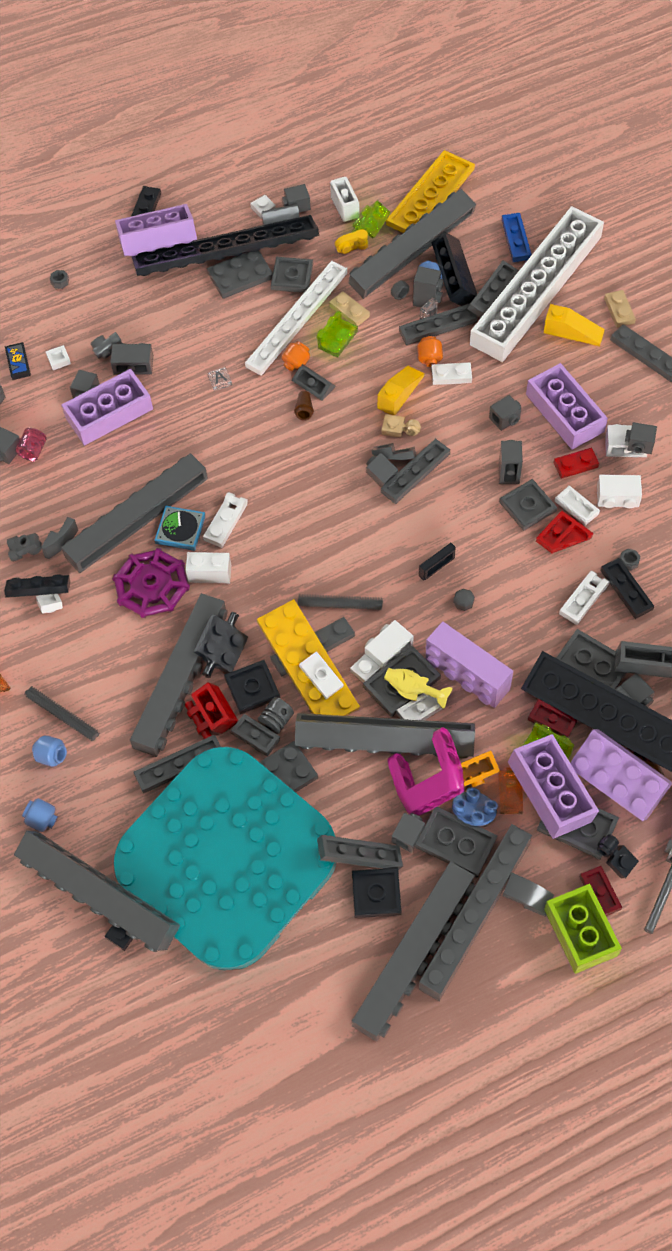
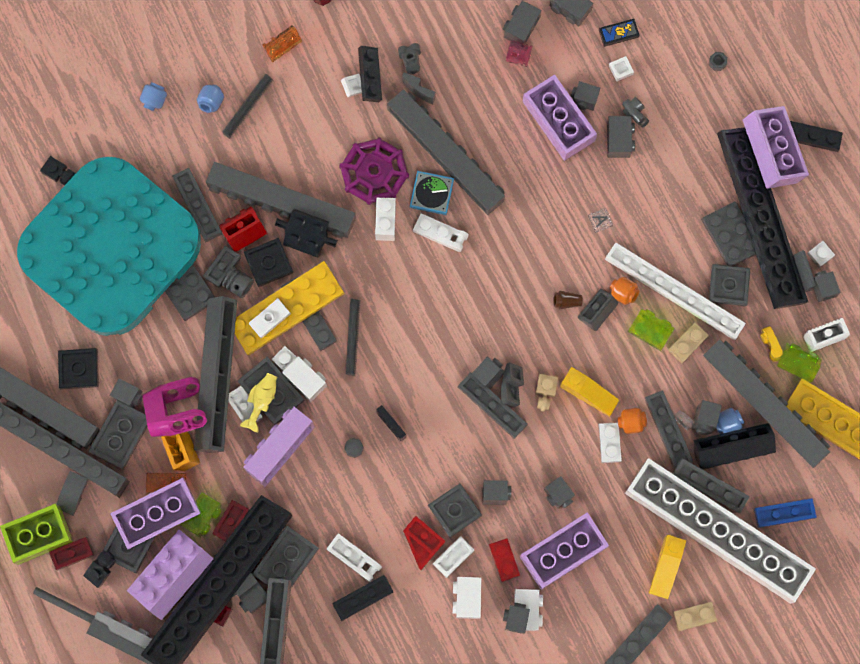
camera: 85 degrees right, 15 degrees up
(97, 891) = (82, 145): dark grey brick -> none
(359, 852) = (103, 351): dark grey plate -> none
(400, 290) = (711, 392): dark grey tile -> none
(474, 807) = (147, 451): medium blue dish -> none
(630, 558) = (394, 602): dark grey tile -> none

